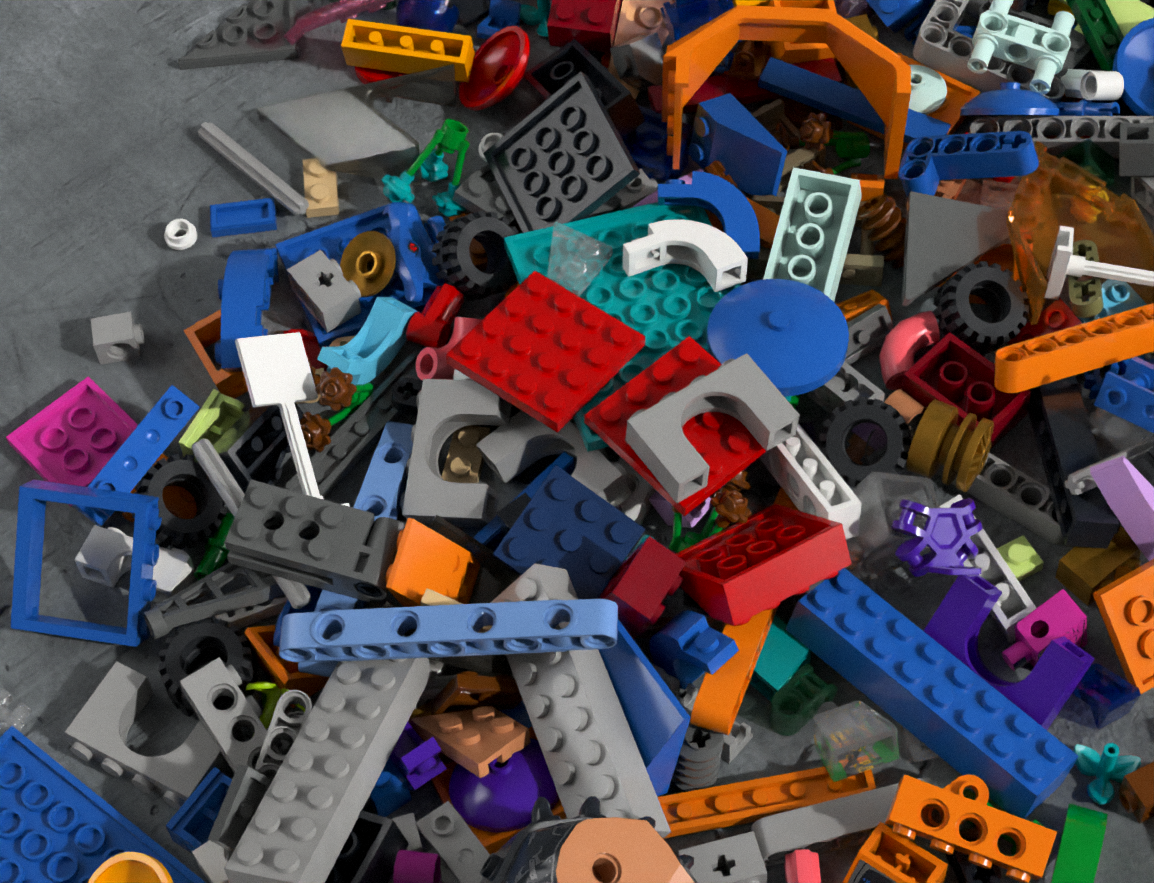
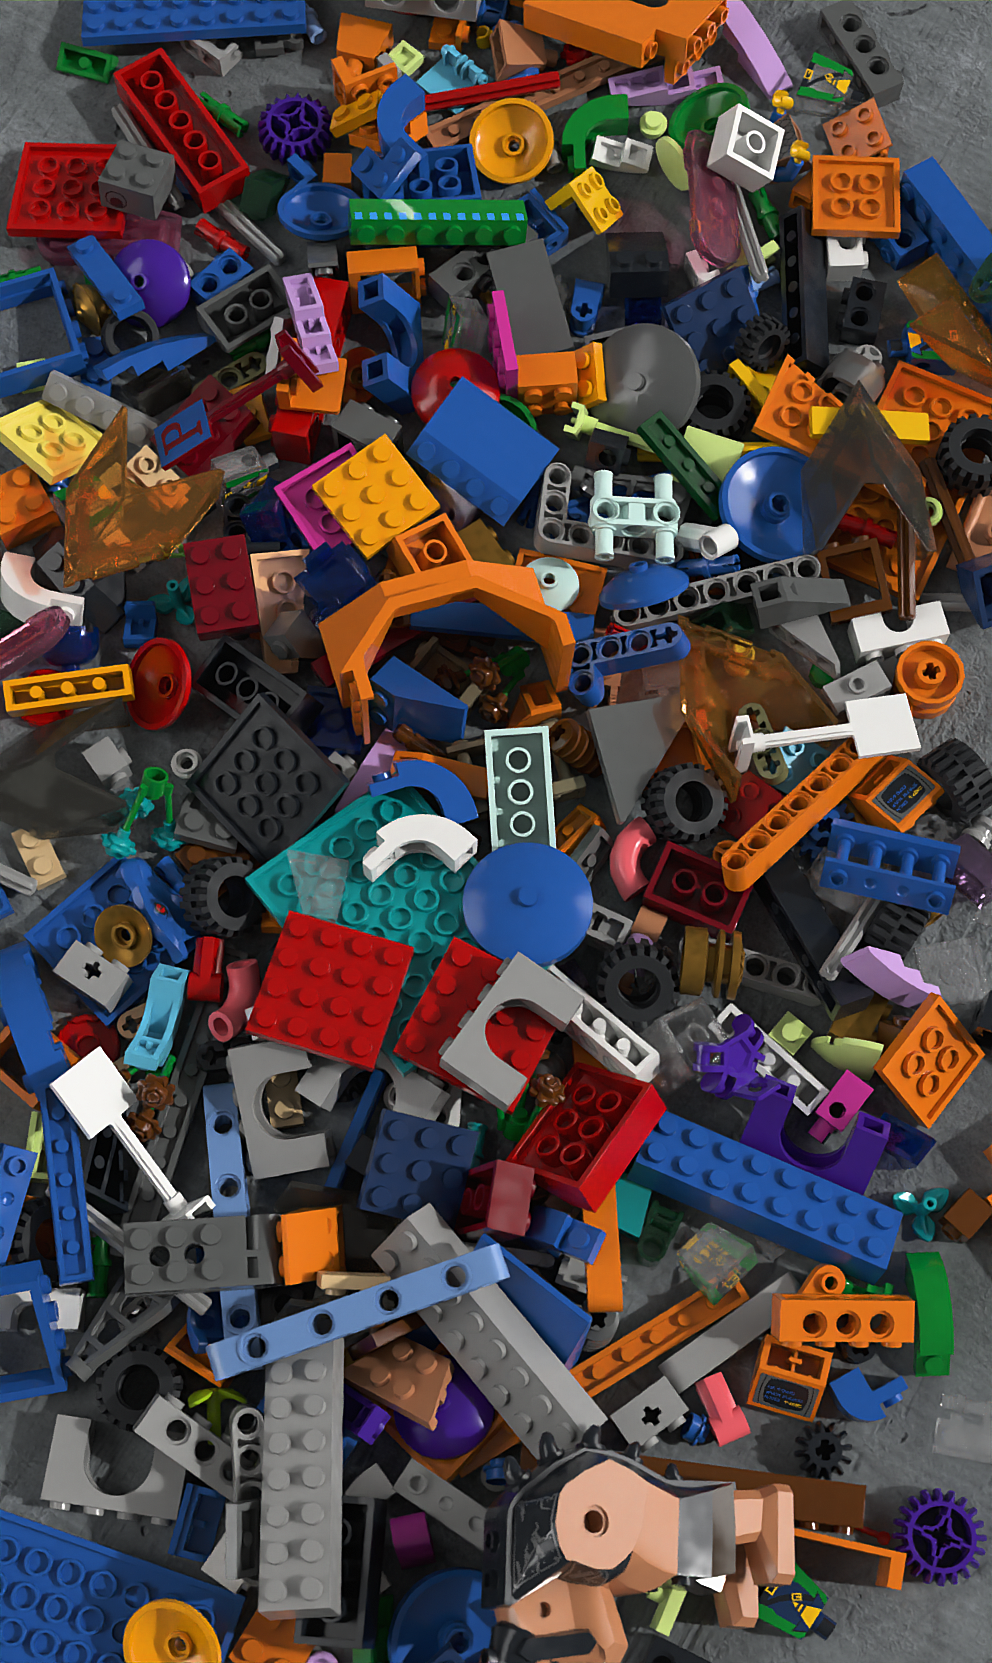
camera: 25 degrees left, 15 degrees up
(211, 448) = (66, 1190): none -> blue tile
(418, 121) = (108, 763): none -> light grey brick
(1079, 582) = (849, 1054): none -> yellowish green brick

